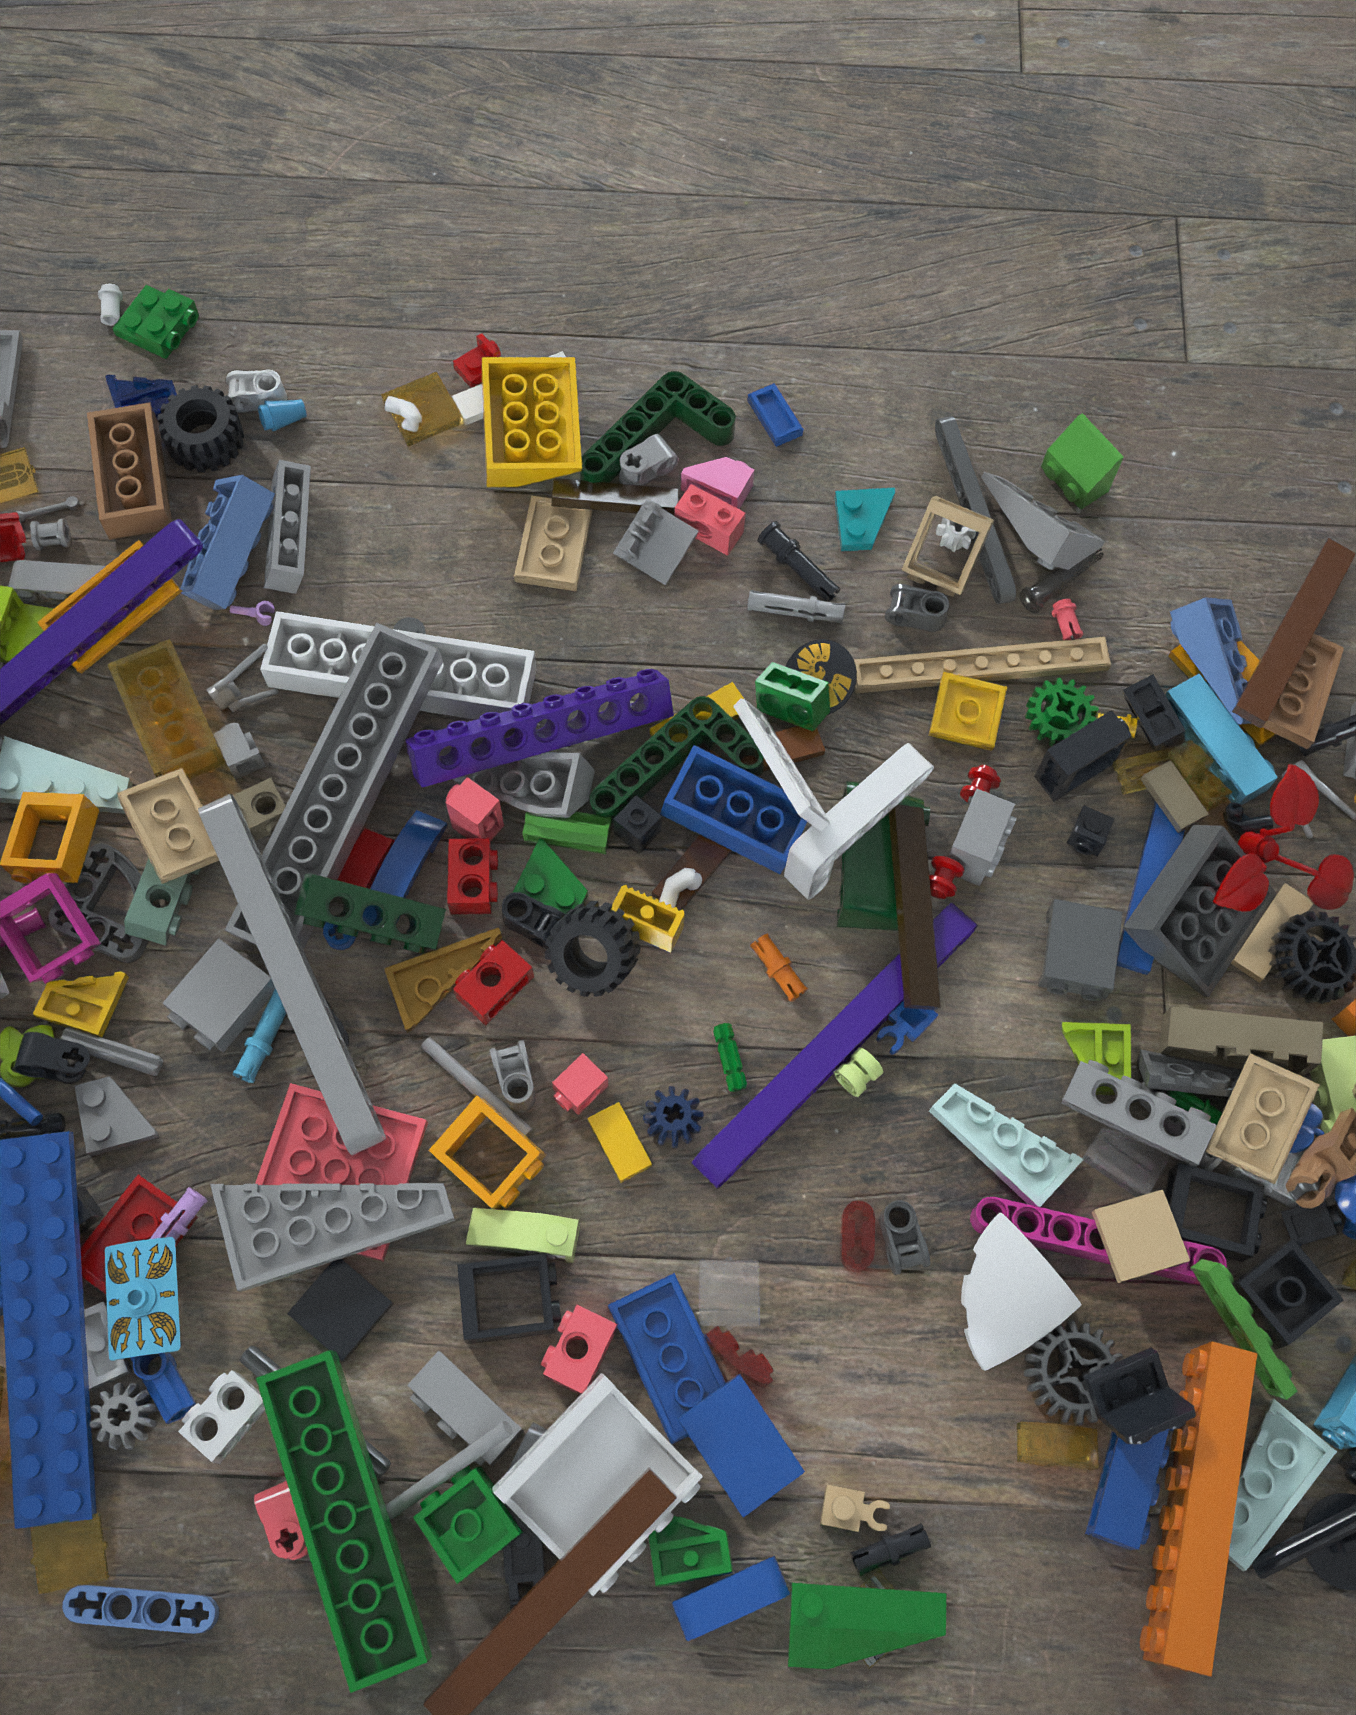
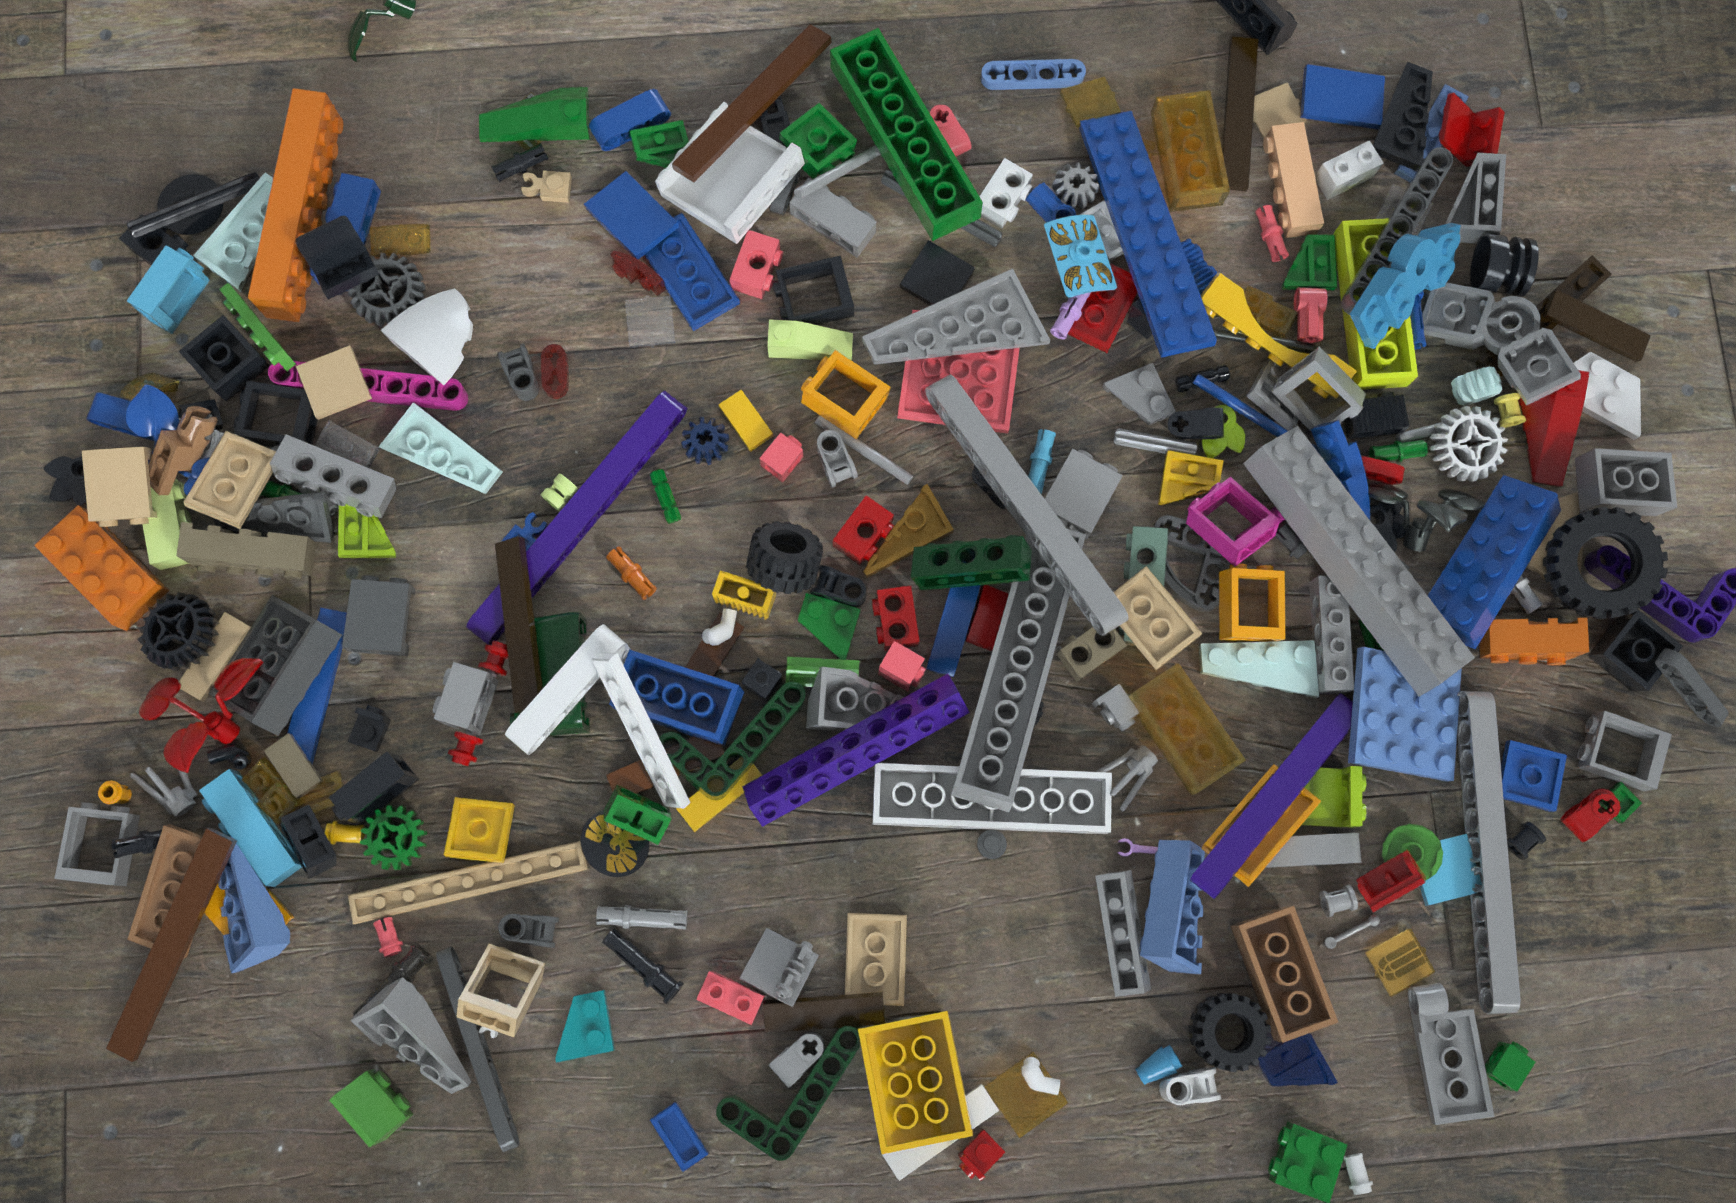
camera: 170 degrees right, 10 degrees up
(721, 478) = (723, 1042): bright pink slope -> none

